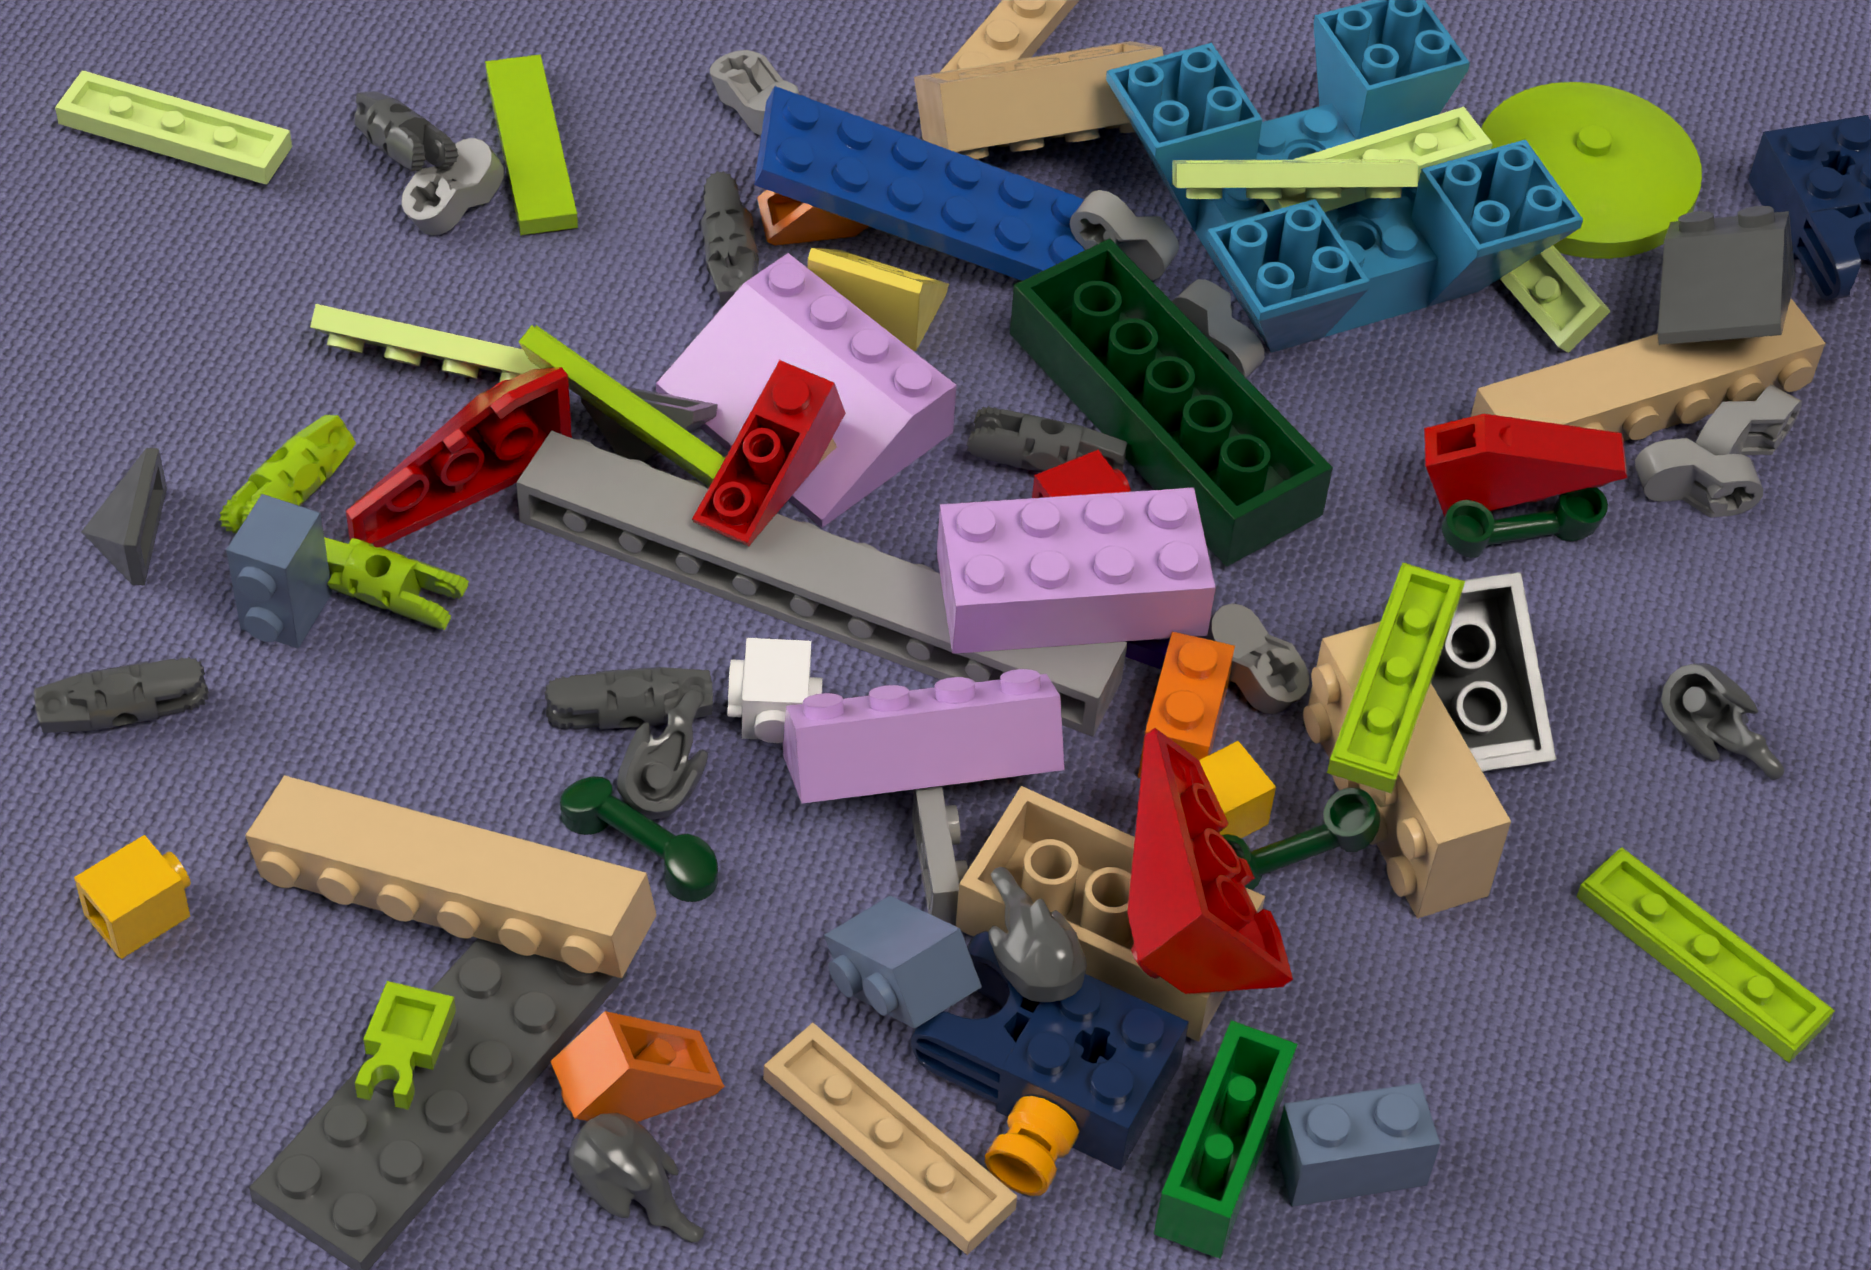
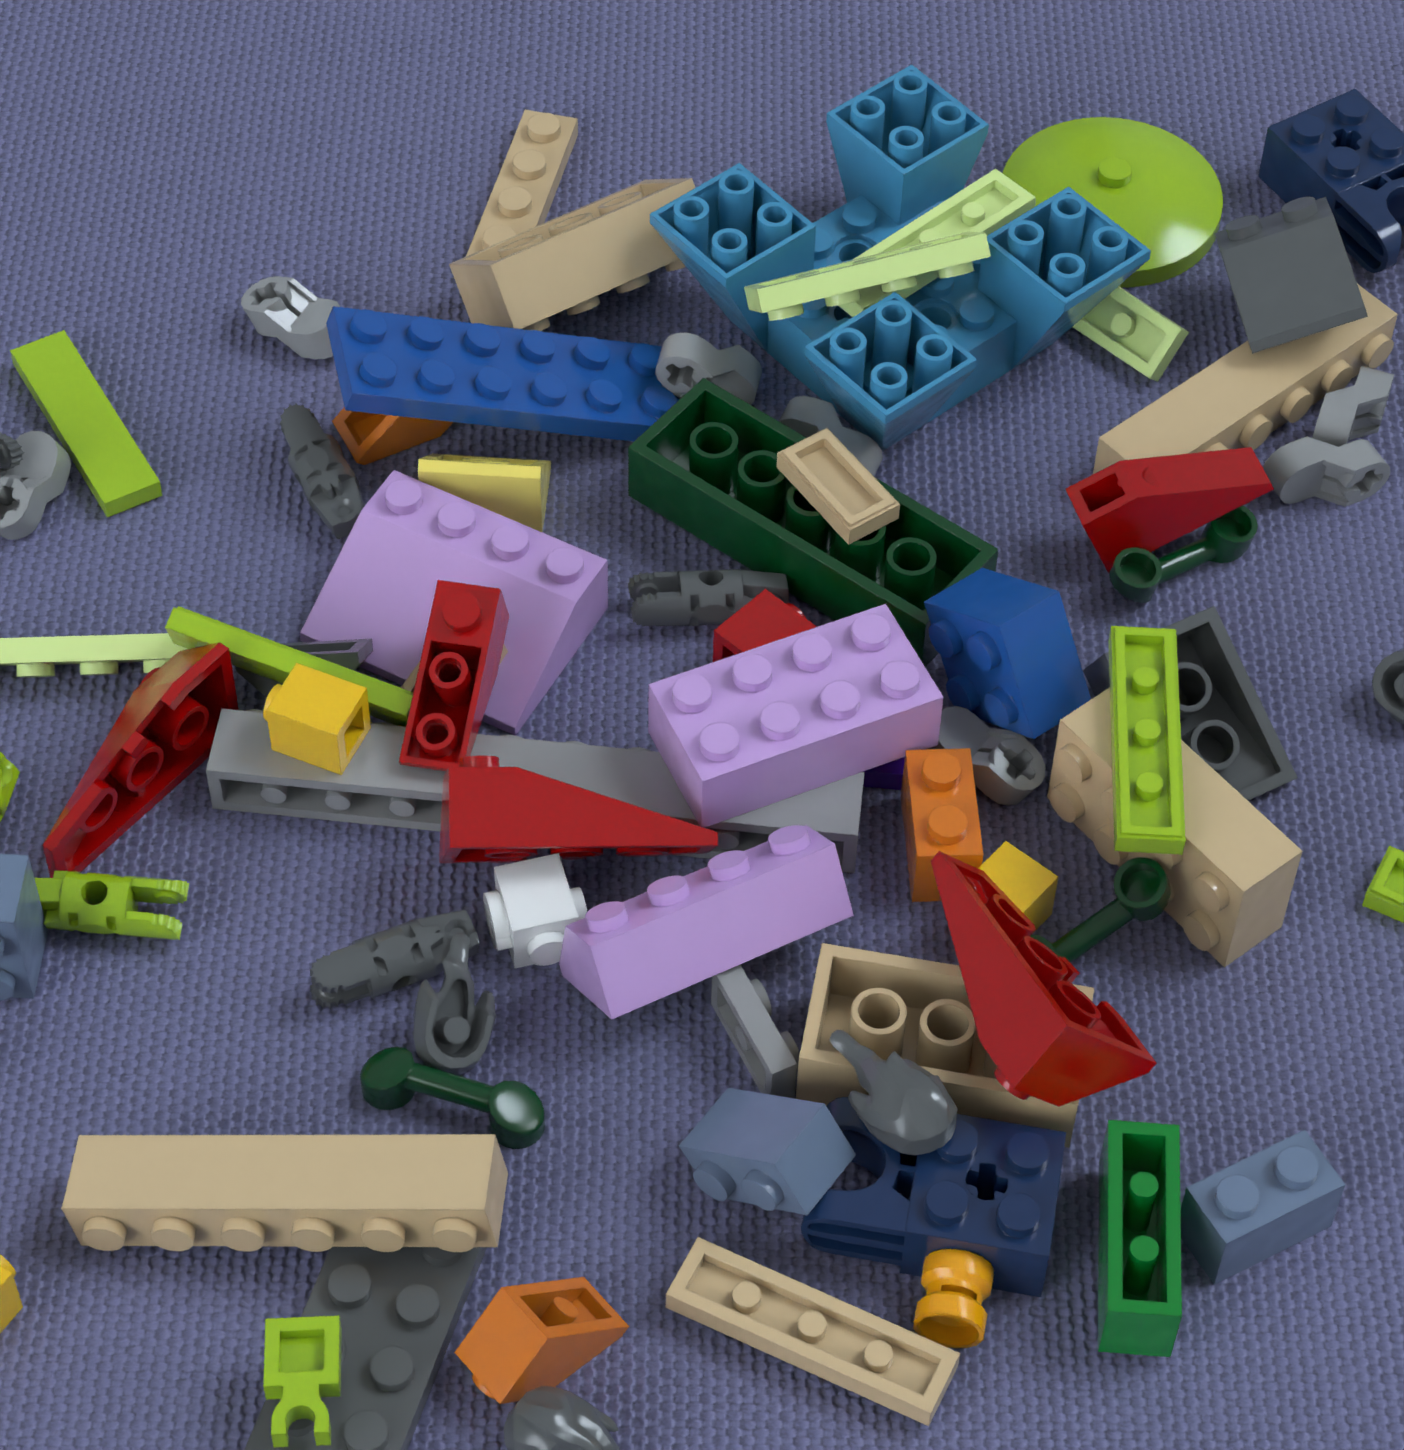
camera: 15 degrees left, 0 degrees up
(630, 460) = (317, 718): none -> yellow brick
(777, 593) = (512, 812): none -> red wedge
(1198, 369) = (838, 485): none -> tan tile
(1302, 563) = (1007, 651): none -> blue brick

